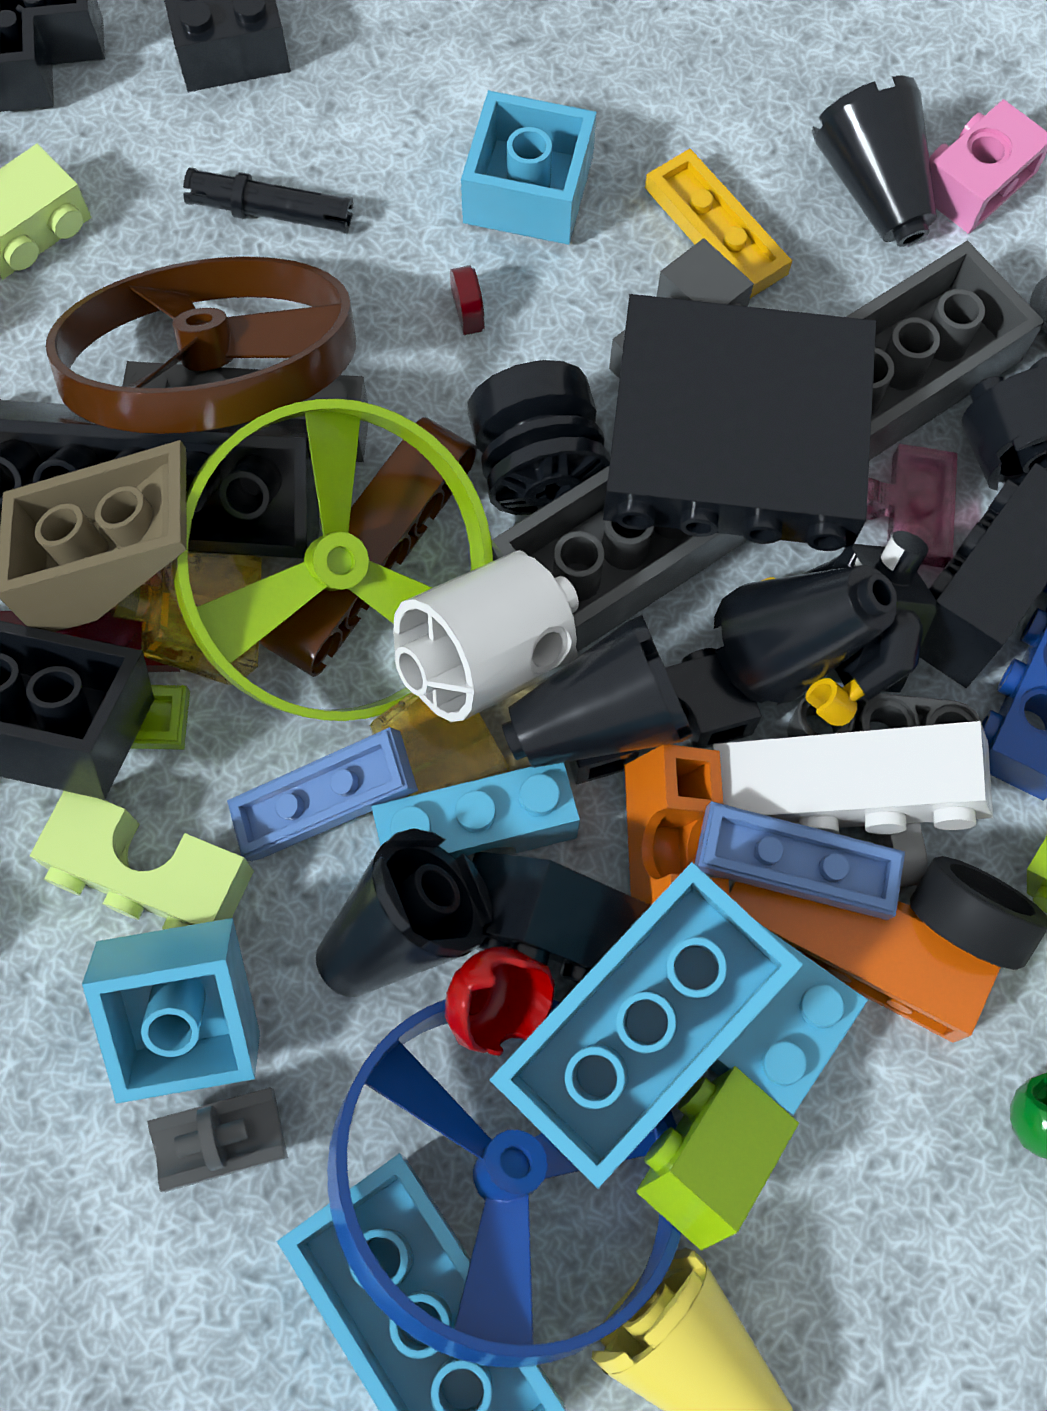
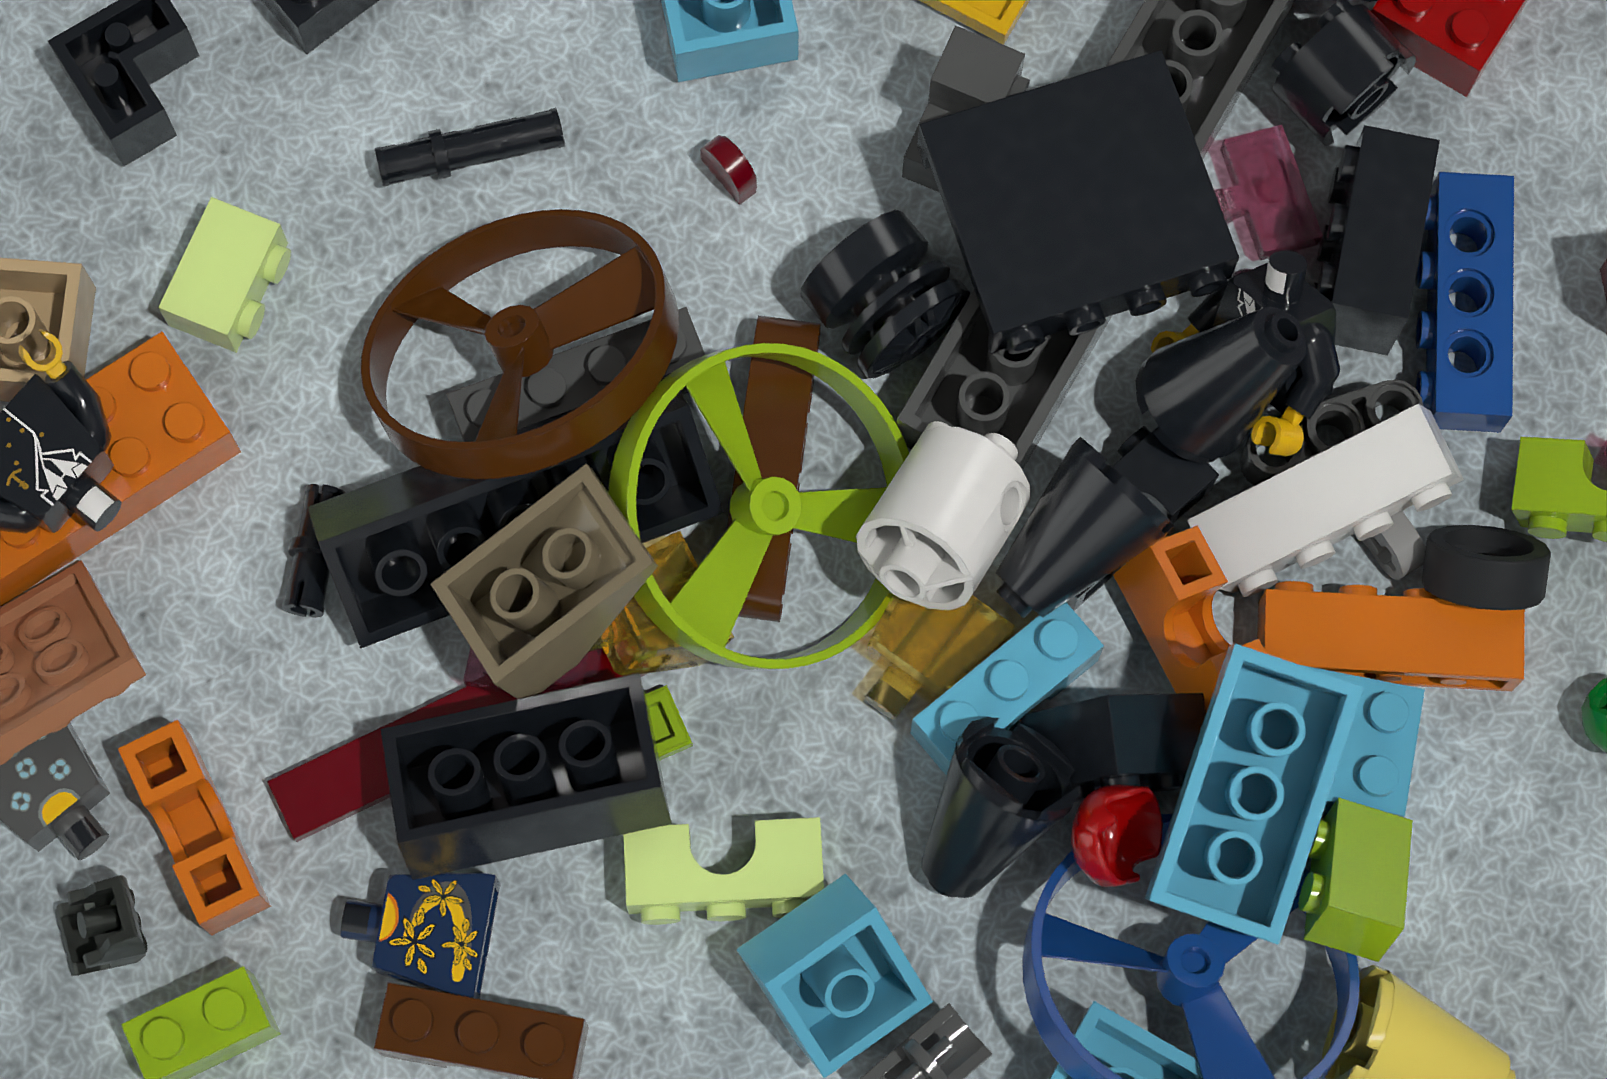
camera: 25 degrees left, 5 degrees up
(322, 795) = (855, 729): medium blue tile -> none
(800, 861) = (1313, 594): medium blue tile -> none

